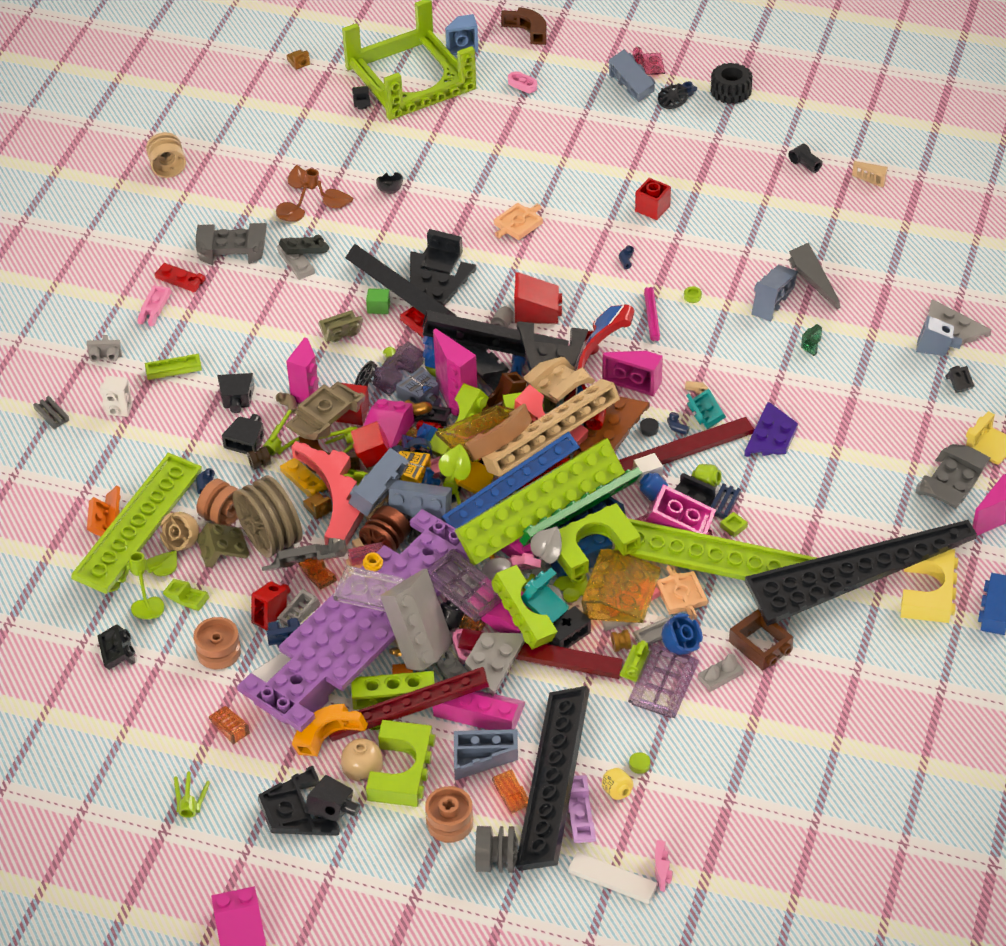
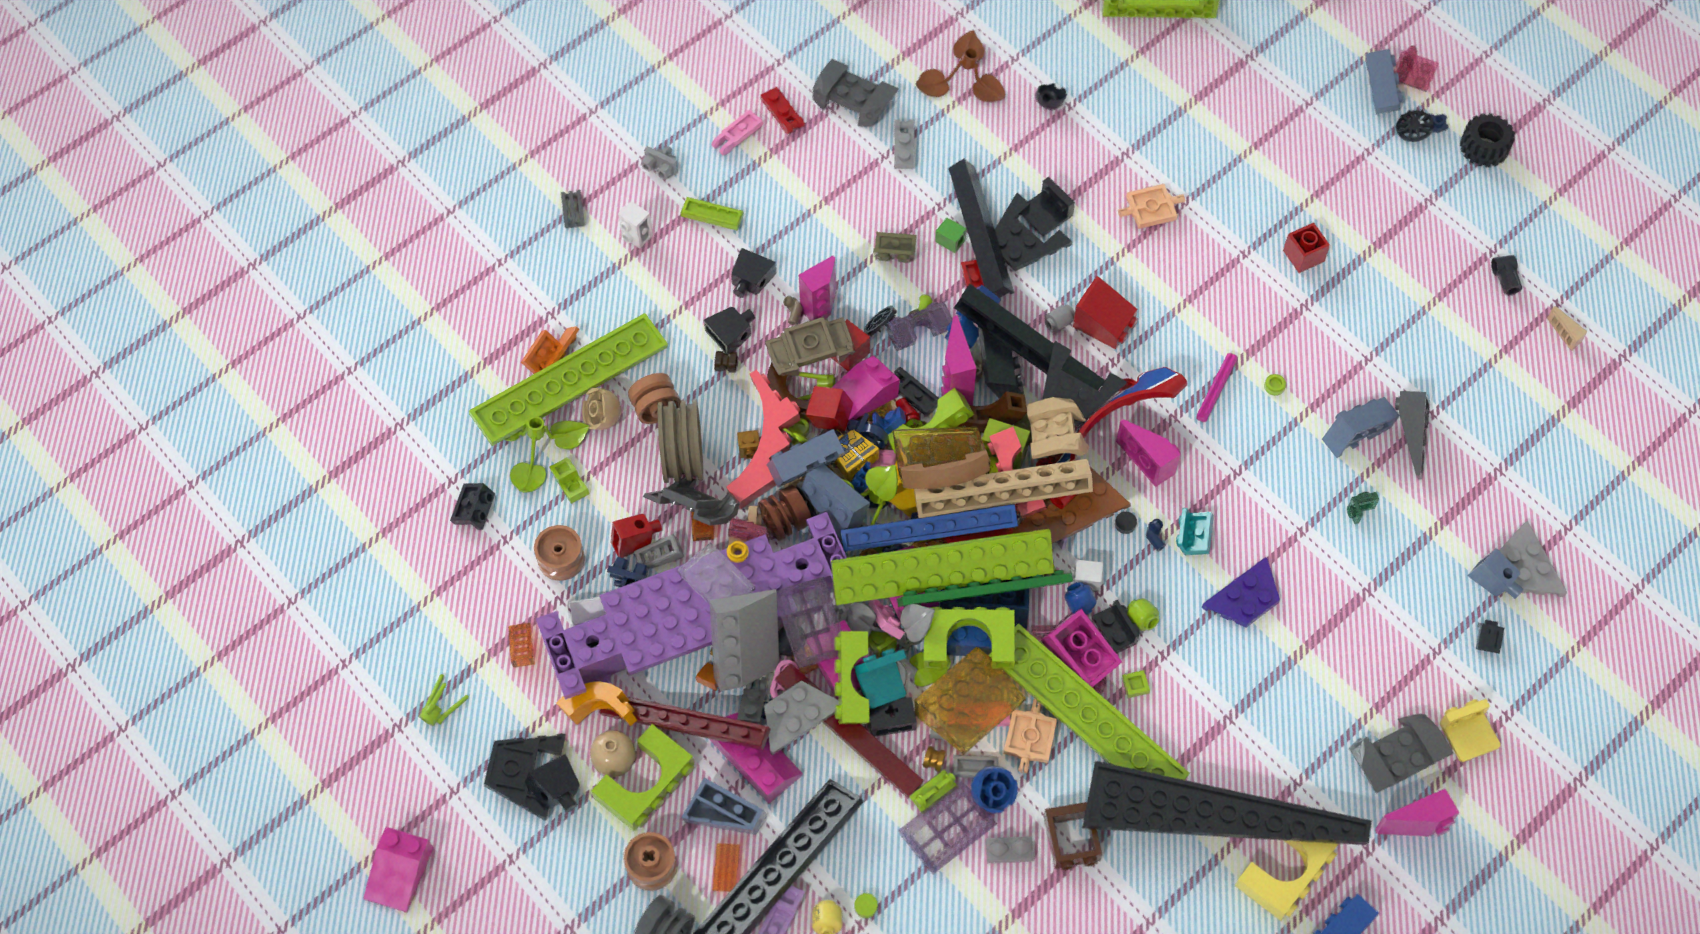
camera: 30 degrees right, 15 degrees up
(204, 478) = (662, 358): dark blue arm -> none
(221, 540) = (634, 441): olive bracket -> none
(274, 443) = (749, 352): lime plant -> none
(302, 477) = (752, 405): yellow plate -> none
(304, 245) = (918, 133): pearl dark grey plate -> none
(376, 689) = (653, 685): lime brick -> none
(419, 388) = (925, 361): sand blue torso -> none
(420, 408) = (907, 385): pearl gold arm -> none
(517, 364) = (1038, 383): blue pin -> none
(522, 82) = (1269, 36): bright pink plate -> none
(625, 256) = (1235, 302): dark blue arm -> none
(695, 443) = (1147, 565): dark red tile -> none
(698, 387) = (1206, 500): tan arm -> none
(736, 493) = (1157, 641): dark blue tile -> none

